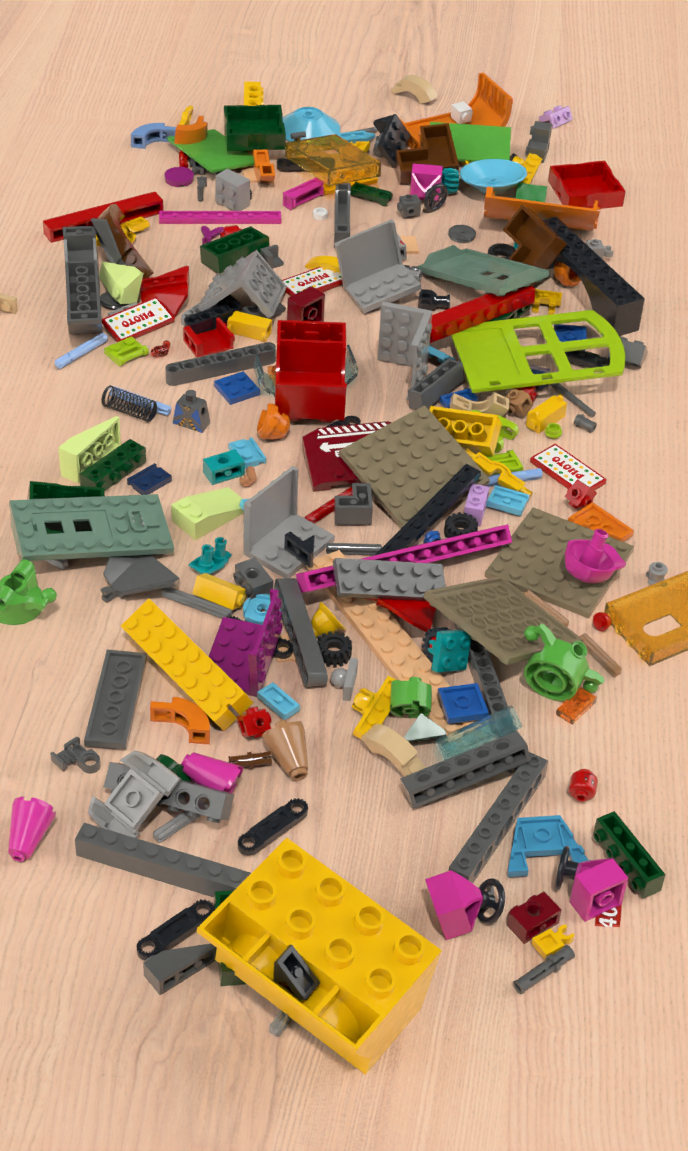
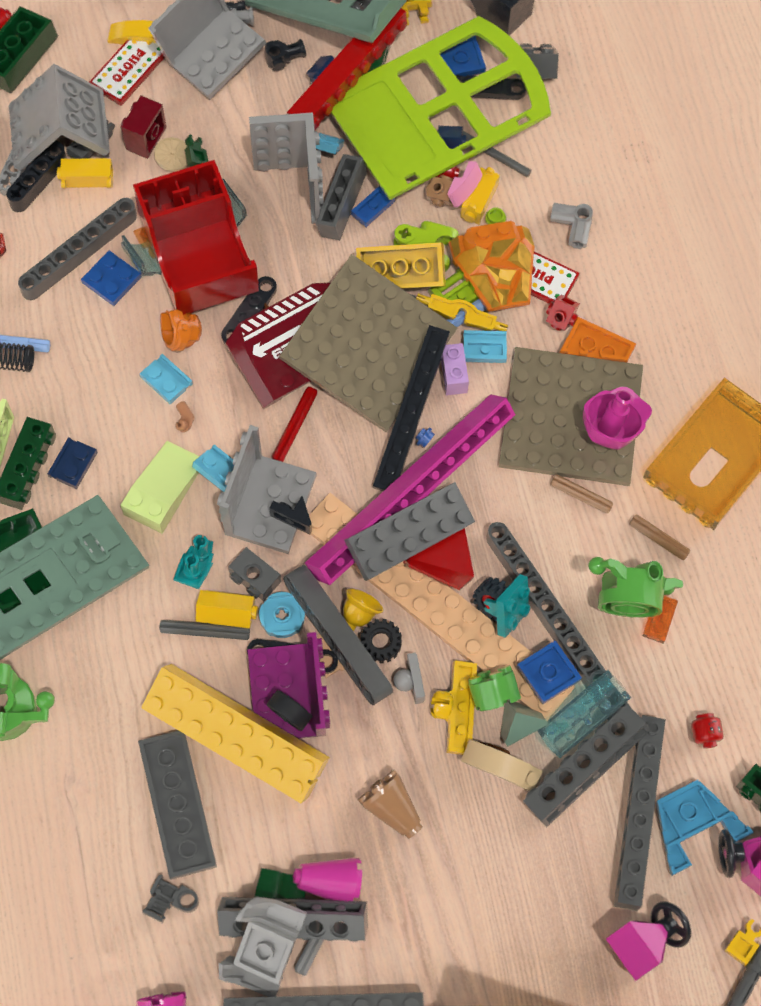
camera: 20 degrees left, 25 degrees up
(135, 575) = (127, 620): dark grey panel -> none
(185, 714) = (263, 797): orange arch -> none
(191, 412) = (80, 345): dark grey torso -> none
(209, 342) = (47, 212): red panel -> none
(223, 467) = (145, 425): teal brick -> none
(234, 655) = (289, 710): none -> black tyre
(252, 759) = (354, 831): reddish brown pin -> none
(254, 722) = (340, 782): red brick -> none
(271, 256) = (62, 45): dark grey panel -> none
(272, 826) = (414, 910): black plate -> none
(278, 701) = (351, 737): medium azure plate -> none
(353, 548) = (344, 482): dark grey axle -> none
(354, 508) = (328, 425): dark grey brick -> none
(457, 521) = (448, 397): black tyre -> none
(495, 404) = (419, 209): tan arch -> none
(497, 617) = (547, 538): dark tan plate -> none
(533, 917) = (729, 913): dark red brick -> none
(535, 398) = (463, 187): none -> bright pink slope
(540, 450) = (497, 263): none -> wedge
(582, 421) = (526, 192): dark grey pin -> none
(601, 621) = (647, 490): red plate -> none
(620, 448) = (570, 215): none -> light grey piece
(656, 572) = (680, 397): light grey brick -> none

